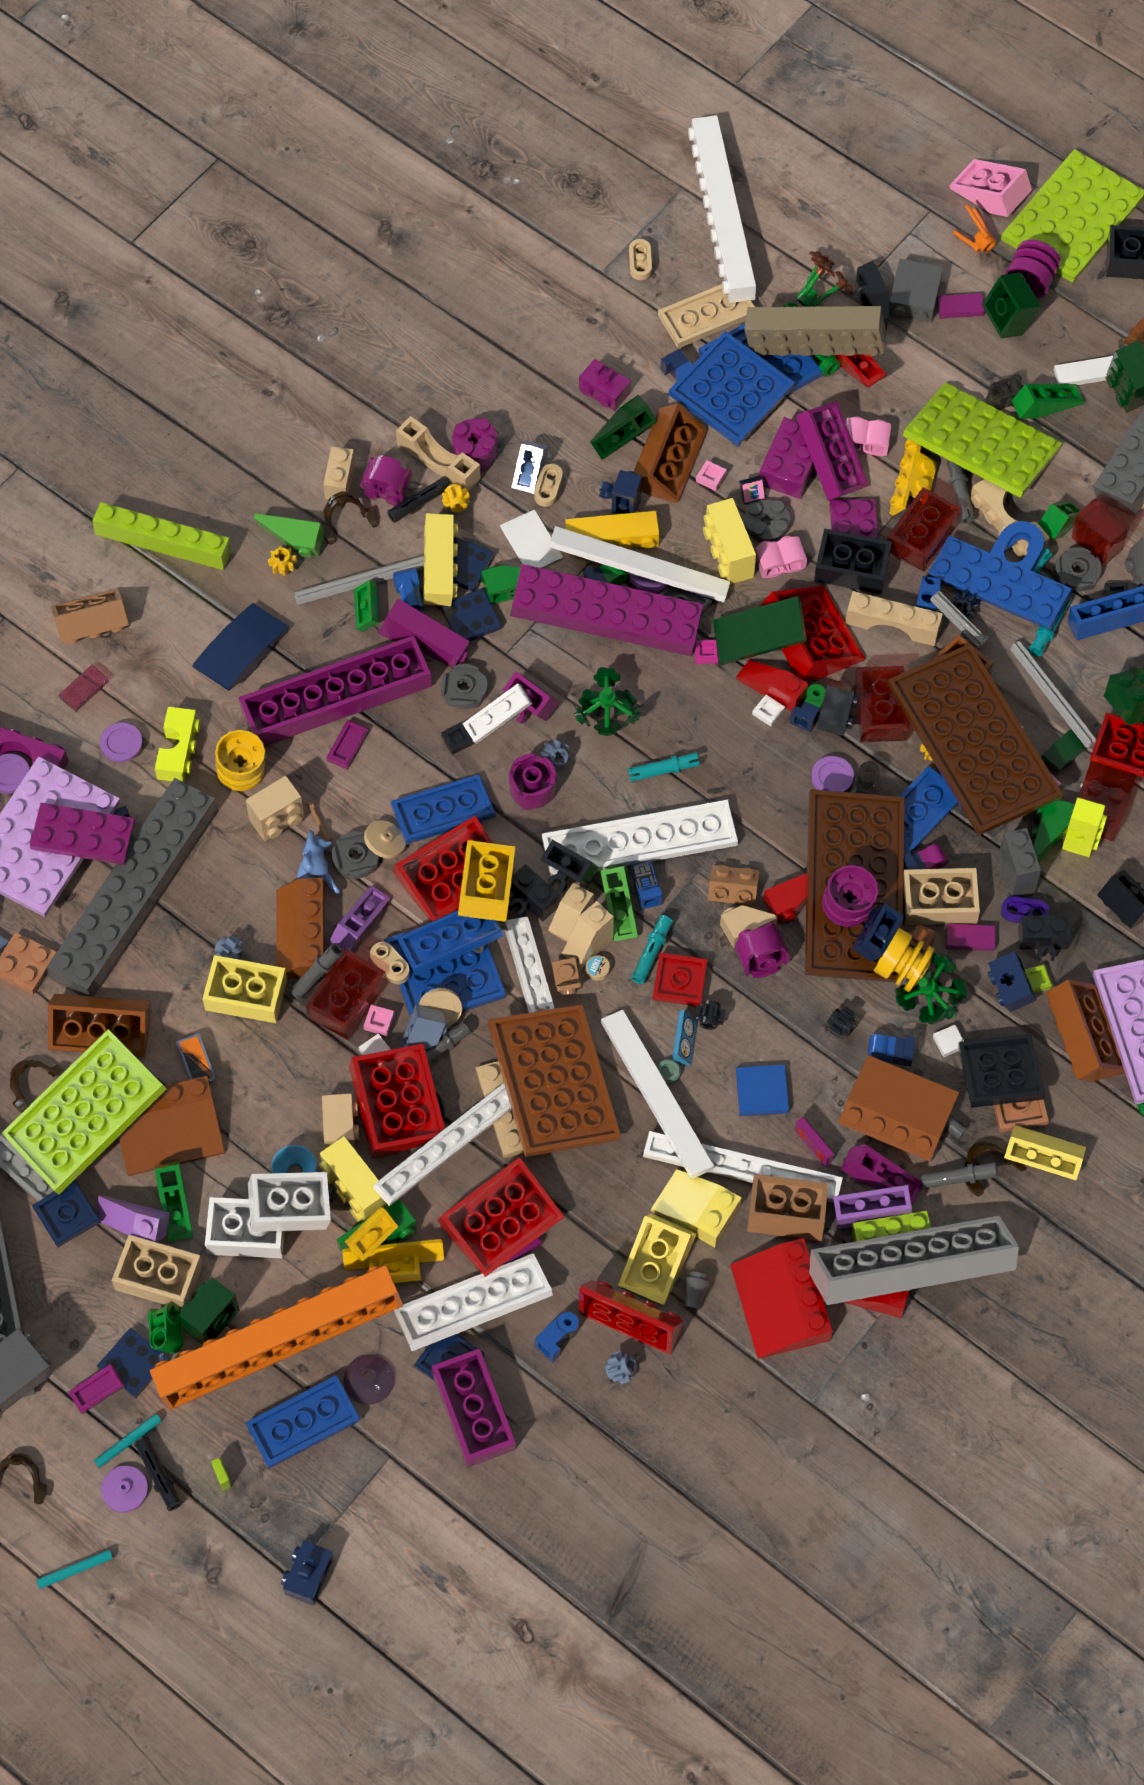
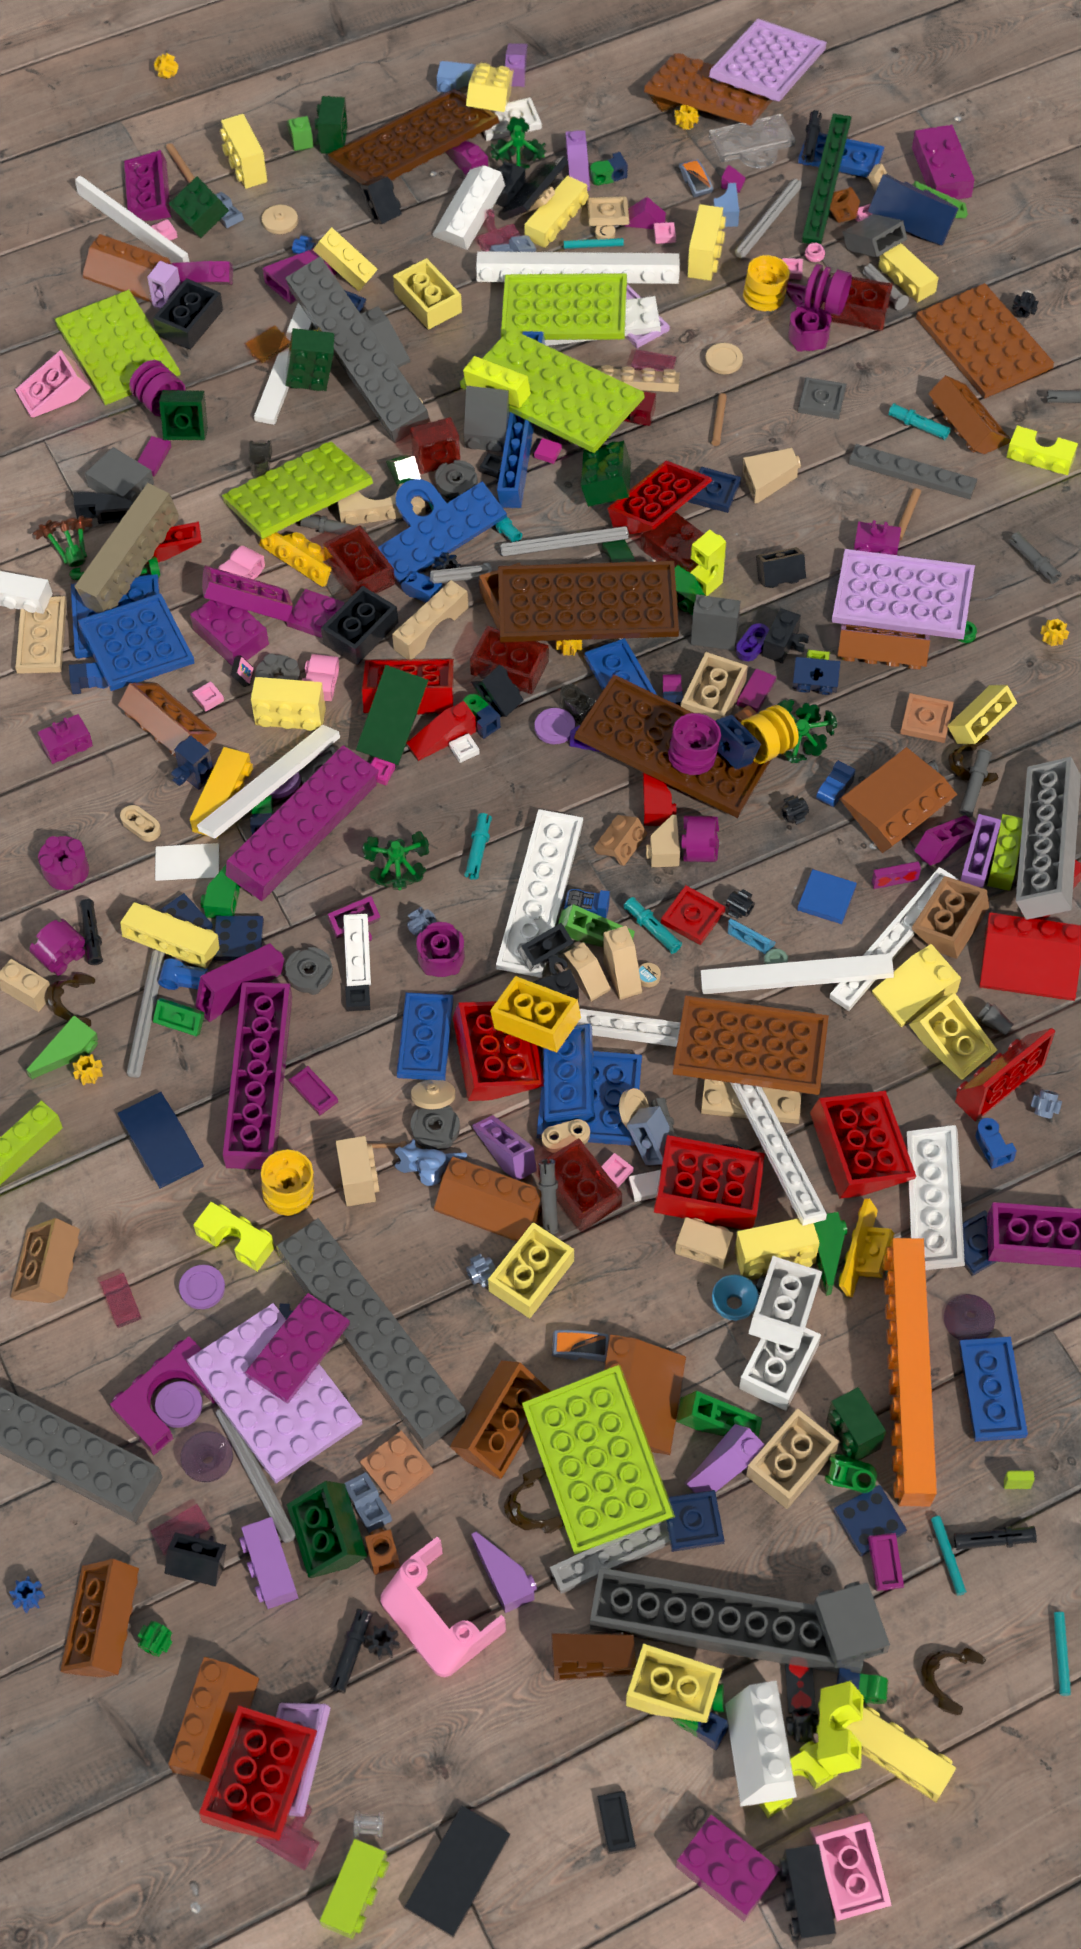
camera: 65 degrees left, 5 degrees down
(124, 1489) = (996, 1576): medium lavender piece -> none
(371, 1234) = (841, 1249): yellow plate -> none
(419, 443) = (33, 906): tan arch -> none
(455, 498) = (110, 899): yellow gear -> none
(529, 464) = (113, 828): arch -> none
(566, 975) = (647, 1001): medium nougat bracket -> none
(623, 426) = (117, 734): dark green slope -> none
(948, 1040) = (845, 744): white tile -> none
(983, 239) = (101, 413): orange plant -> none
(1001, 1070) = (896, 713): black plate -> none
(1046, 399) = (284, 435): green slope -> none

